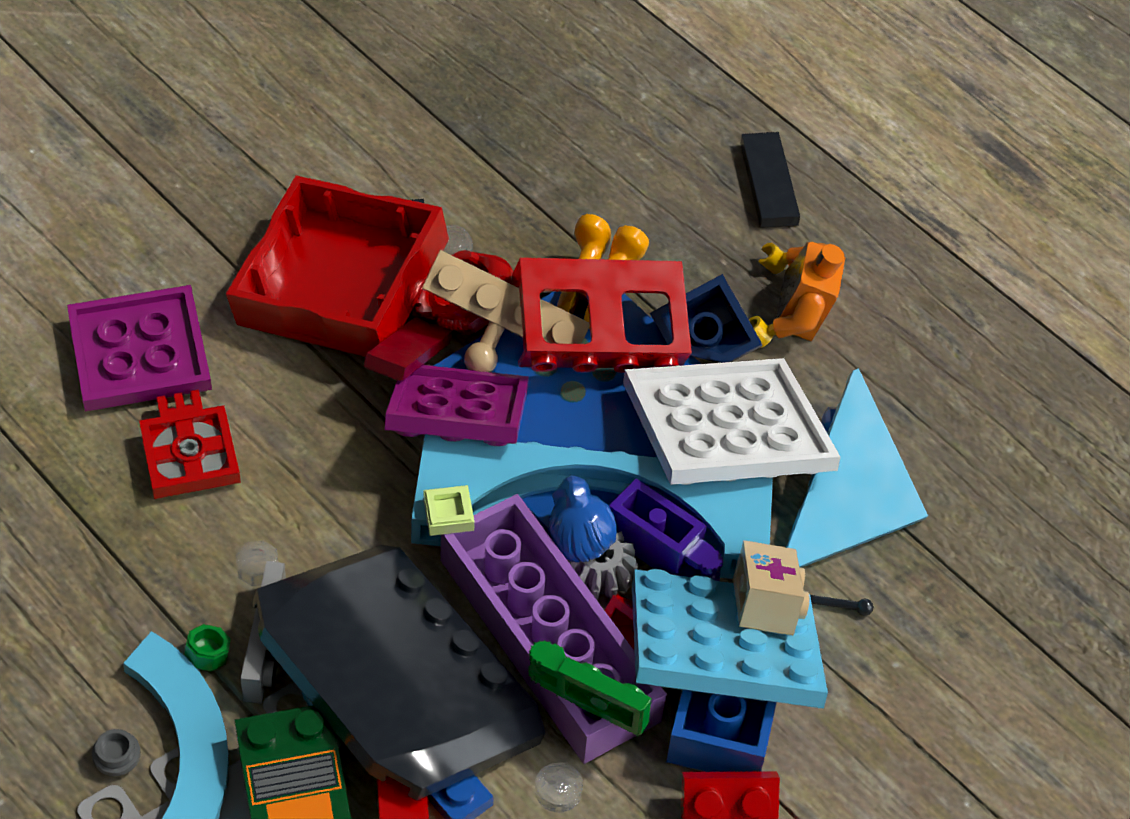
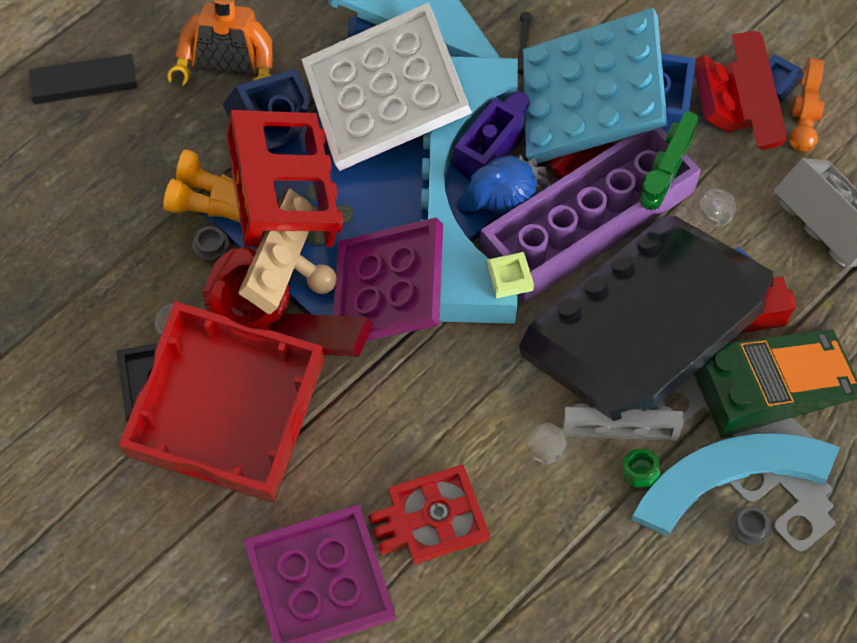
camera: 90 degrees left, 10 degrees up
(769, 588) = (552, 53): tan brick -> none

